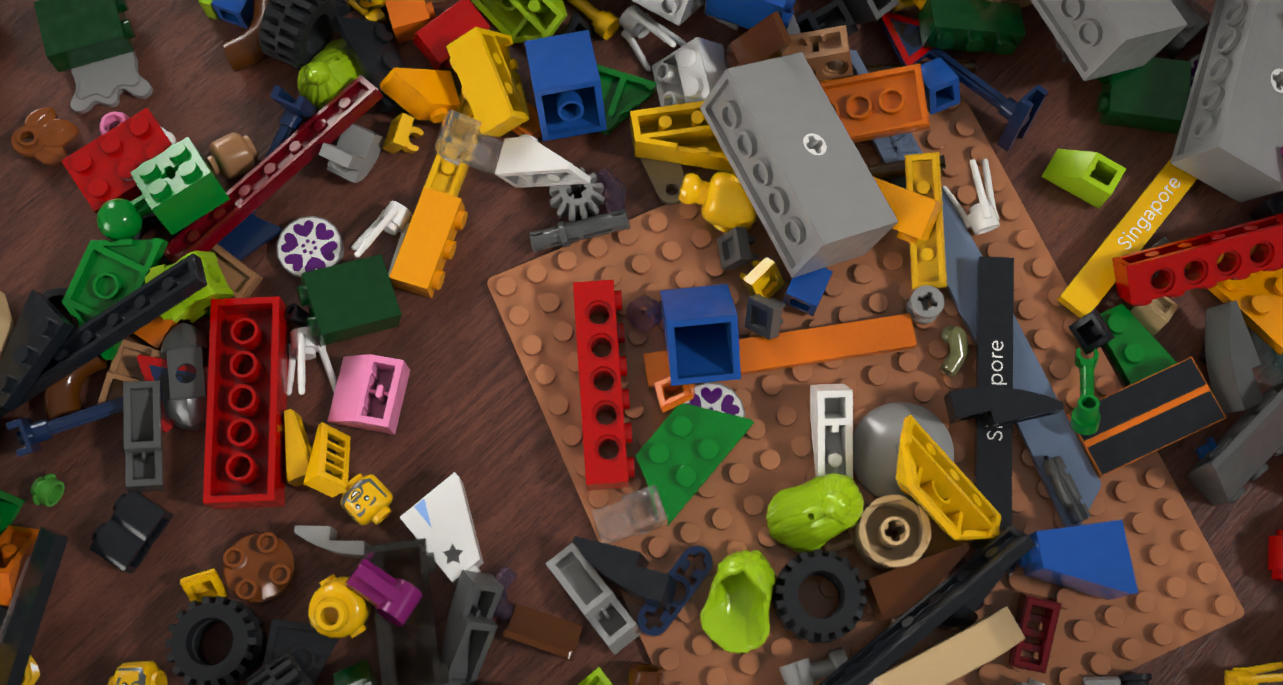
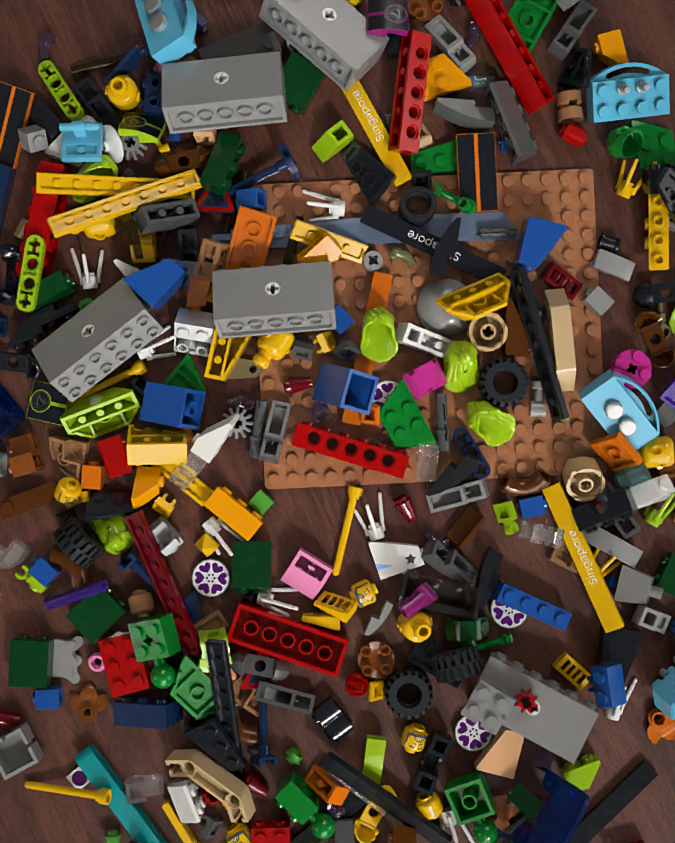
camera: 65 degrees left, 15 degrees up
(36, 74) = (48, 698): none -> blue brick
(52, 224) = (147, 712): none -> dark blue wedge
(79, 628) = (374, 757): none -> lime slope
(195, 96) = (97, 613): none -> dark green brick
(202, 547) = (356, 685): none -> red gear
(207, 50) = (82, 591): none -> dark purple piece
(361, 221) = (206, 544): none -> yellow slope
(462, 281) = (261, 502): none -> bright green slope
(481, 479) = (374, 530): none -> white plant
(530, 422) = (353, 493): none -> yellow piece
(539, 516) = (405, 507): none -> dark red cone
(583, 255) = (275, 432): none -> dark grey slope
(675, 260) = (296, 384): none -> dark red cone
(695, 525) = (442, 422): none -> dark grey pin
(770, 456) = (425, 377): none -> dark pink brick
(810, 353) = (378, 335): none -> lime hair
(1061, 247) = (368, 172): none -> black wing
(1065, 327) = (421, 192): none -> black tyre

